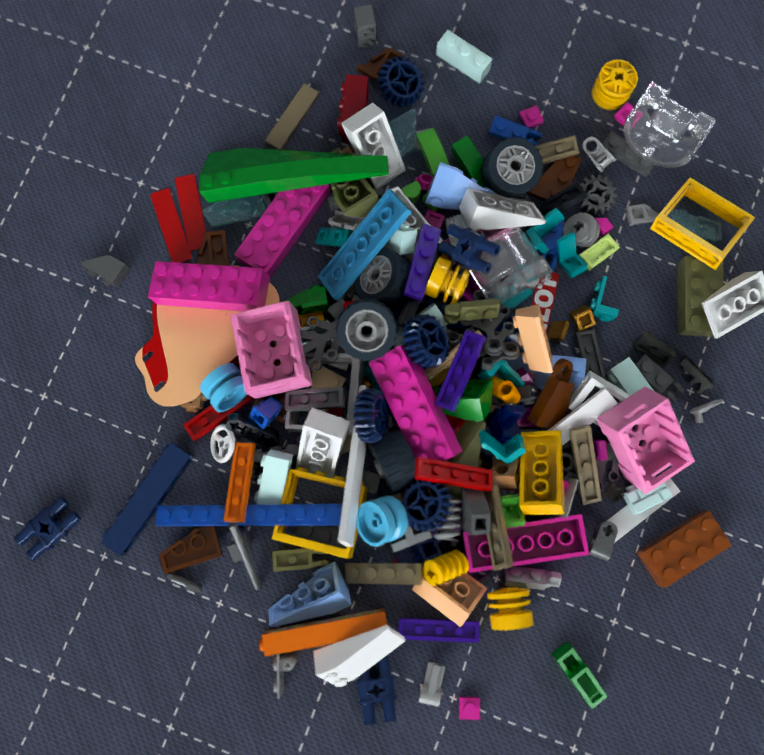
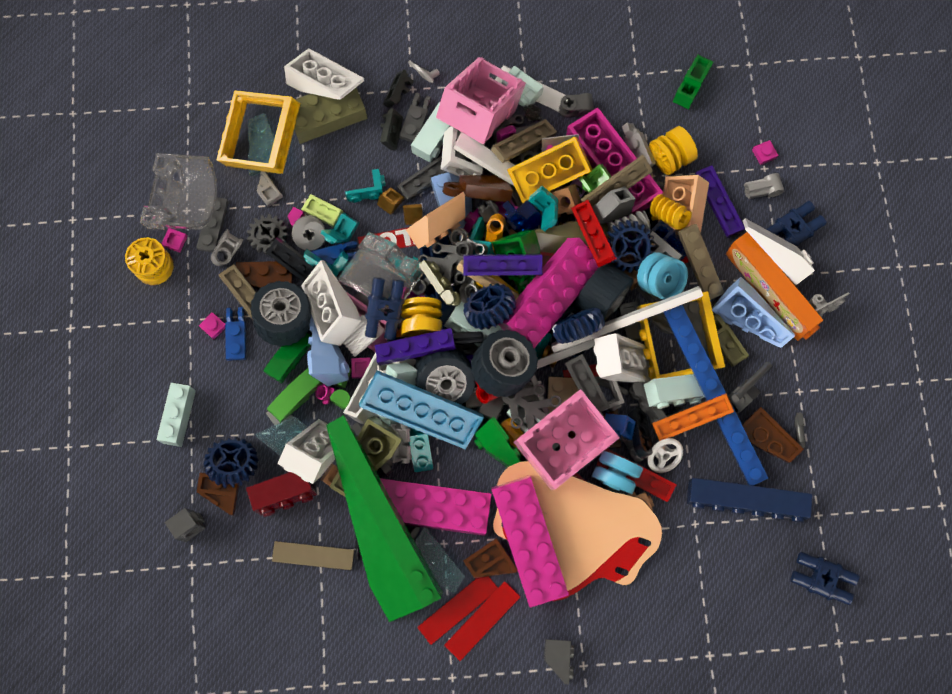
camera: 115 degrees left, 5 degrees down
(683, 548) = (551, 43): dark orange brick -> none

